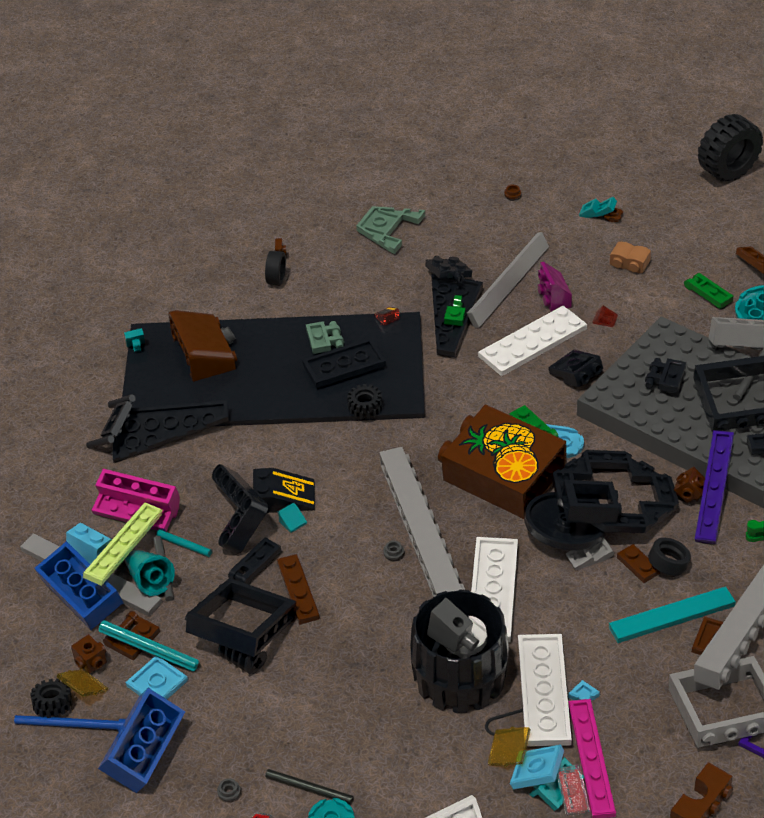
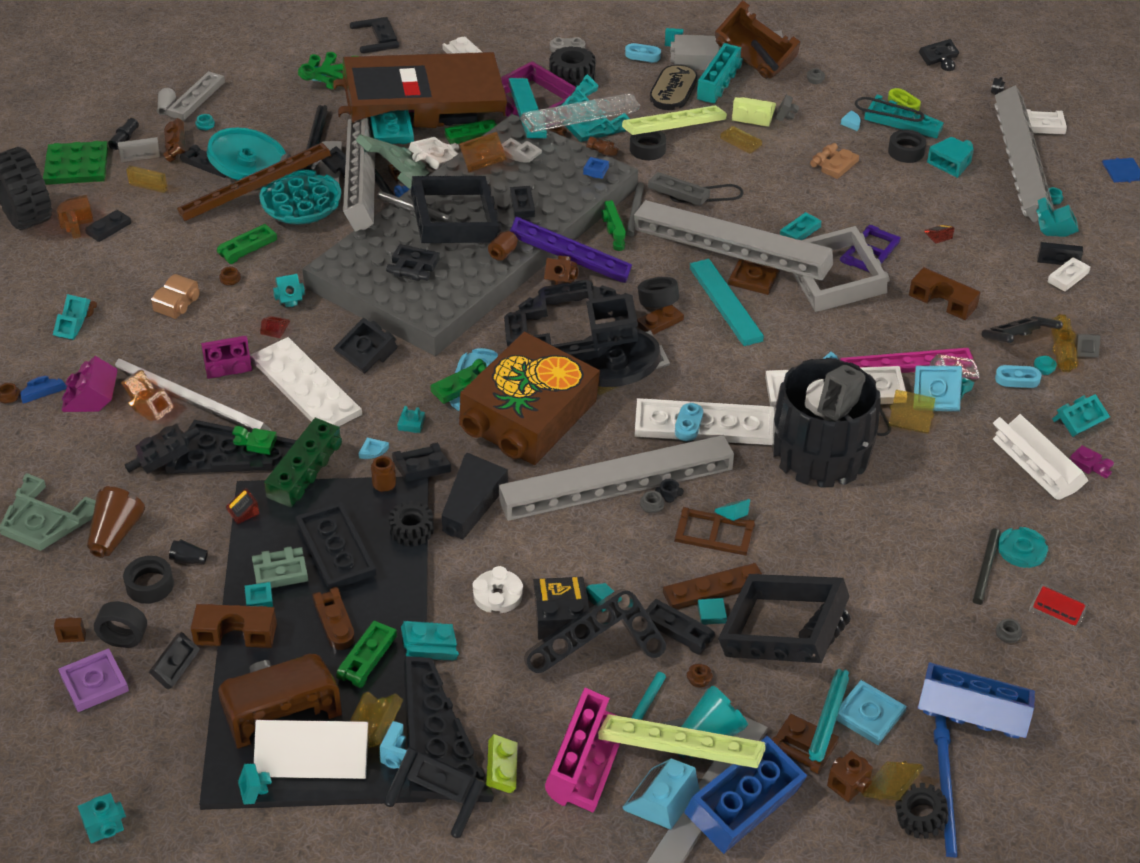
camera: 95 degrees left, 0 degrees up
(124, 281) = (102, 817): none -> teal brick
(138, 462) = (502, 764): none -> lime plate
(153, 360) = (311, 749): none -> white tile
(153, 398) = (393, 745): none -> medium azure bracket
(177, 388) = (378, 715): none -> clear yellow bracket
(205, 578) = (702, 679): none -> reddish brown plate
(237, 267) = (93, 680): none -> medium lavender plate
(239, 385) = (366, 653): none -> green plate
(248, 299) = (174, 660): none -> black plate
(251, 419) = (429, 640): none -> teal plate
(268, 326) = (214, 621): none -> reddish brown arch
(271, 584) = (712, 611): none -> teal tile
(276, 369) = (334, 619): none -> reddish brown plate
(296, 329) = (259, 595): none -> teal plate
(302, 449) = (497, 579): none -> white plate
(323, 288) = (150, 593): none -> black tyre
(347, 294) = (187, 553): none -> black cone
(360, 615) = (711, 543): none -> reddish brown window
(374, 253) = (112, 519): none -> reddish brown cone
(379, 601) = (734, 509): none -> teal slope
(389, 433) = (471, 494): none -> black slope
(407, 562) = (669, 490): none -> black plate
(412, 378) = (383, 473): none -> reddish brown brick
(428, 336) = (303, 462): none -> dark green brick
(433, 410) = (421, 462): none -> black plate
(459, 382) = (373, 447): none -> medium azure tile
(483, 570) = (688, 422): none -> medium azure plate
(492, 399) = (411, 420): none -> teal tile
(500, 258) = (145, 399): none -> clear orange brick
(517, 226) = (90, 387): none -> magenta slope
(522, 208) = (41, 387): none -> blue tile
(640, 315) = (288, 282): none -> teal brick
(663, 285) = (229, 276): none -> reddish brown plate
(696, 429) = (502, 245): none -> reddish brown brick
(722, 213) = (108, 225): none -> black plate
(728, 189) = (74, 213): none -> clear orange brick

